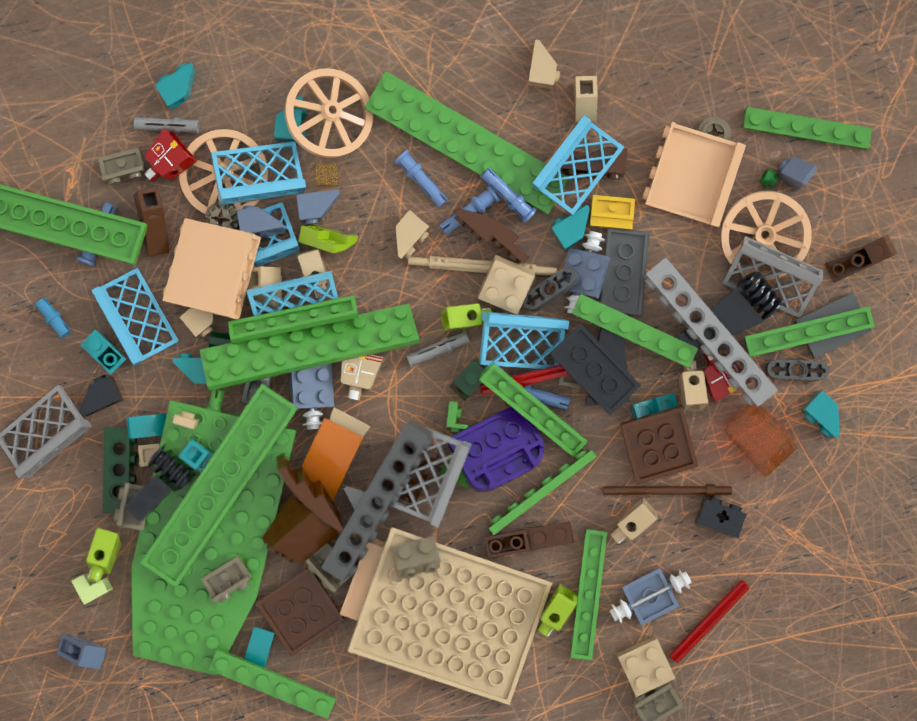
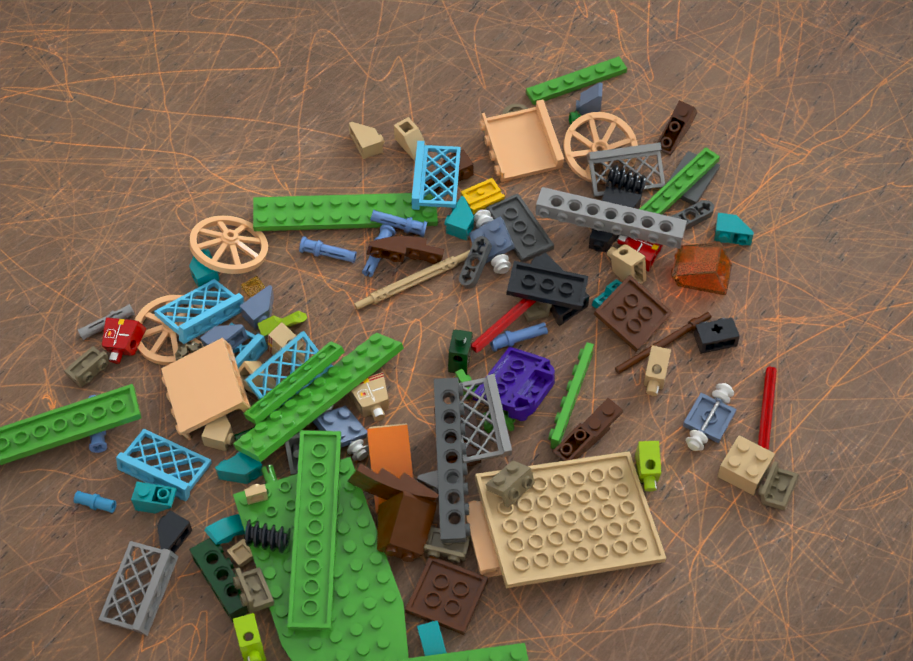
camera: 30 degrees left, 30 degrees down
(148, 498) = (262, 568): black brick -> none
(151, 212) = (125, 373): reddish brown slope -> none
(177, 87) = (97, 293): teal slope -> none
(196, 455) = (281, 515): teal slope -> none
(226, 579) = (368, 596): dark tan bracket -> none
(410, 232) = (343, 287): tan slope -> none
(437, 349) = (425, 343): light grey pin -> none
(456, 317) = (423, 315): lime torso -> none
(506, 284) = (440, 275): tan brick -> none
(520, 322) = (471, 288): medium azure fence -> none
(532, 409) = (522, 338): bright green plate -> none
(588, 594) = (669, 452): bright green plate -> none
(634, 331) = (556, 249): bright green plate -> none

